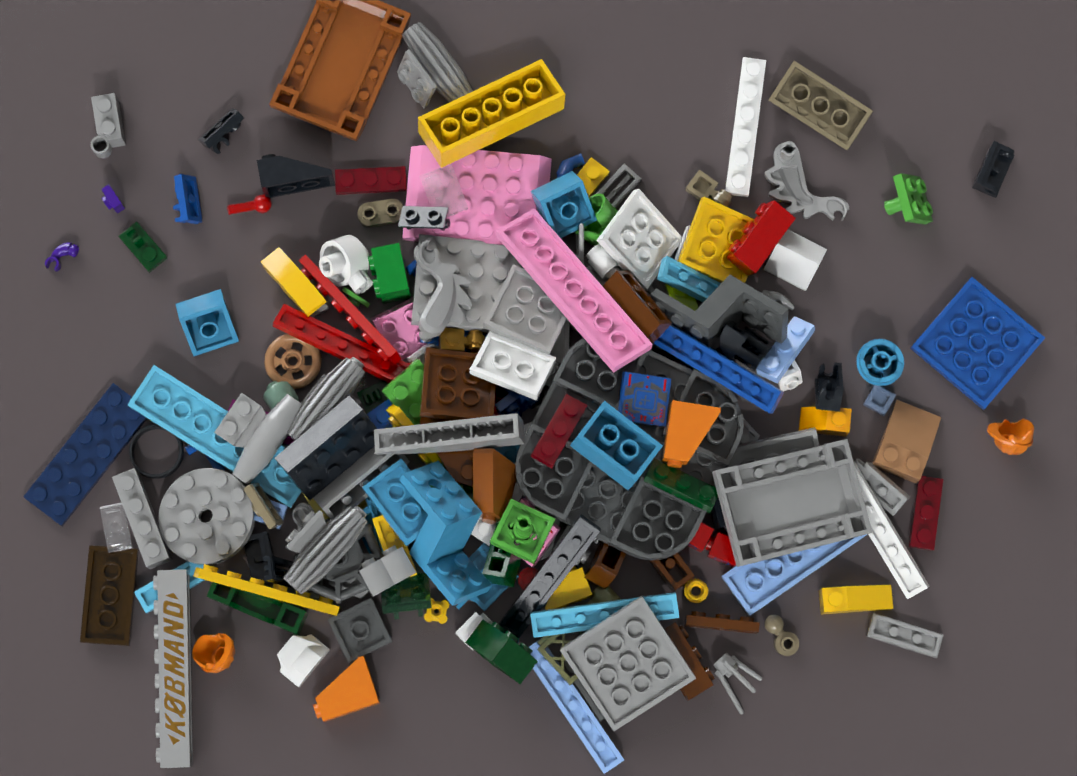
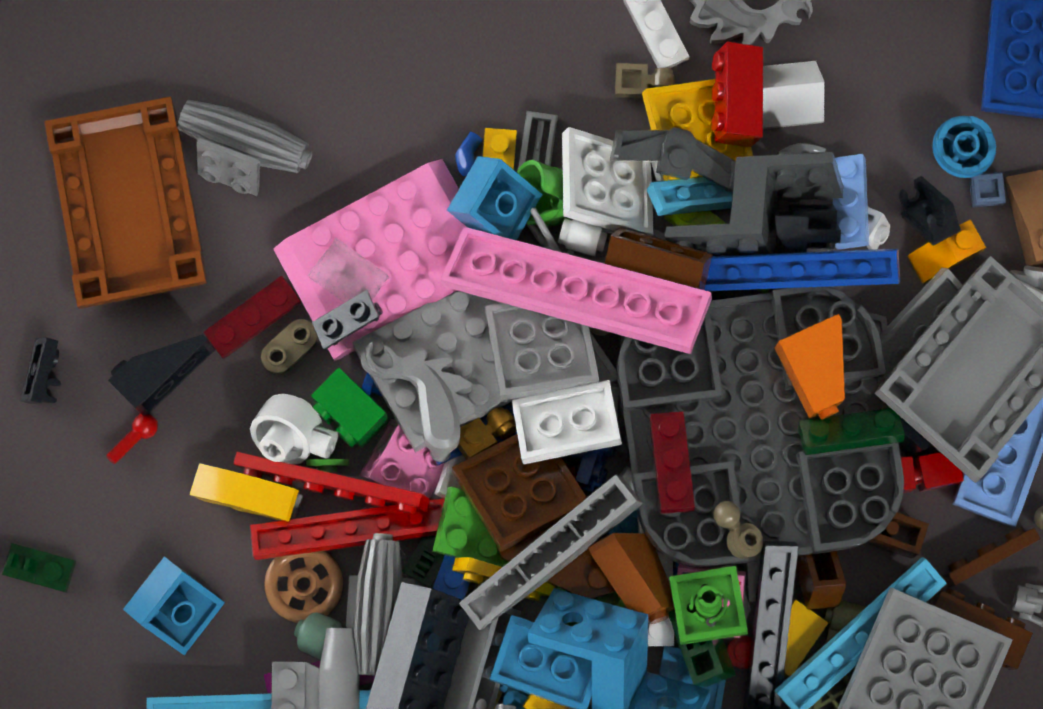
camera: 35 degrees left, 0 degrees up
(188, 199) = (55, 476): blue plate -> none
(491, 113) = (341, 150): yellow brick -> none
(570, 484) = (727, 516): none -> dark tan plate
(616, 445) = (750, 435): dark azure brick -> none
(644, 398) = (741, 361): tile -> none
(695, 247) = (676, 154): none -> dark grey plate
(703, 590) = (945, 539): yellow plate -> none

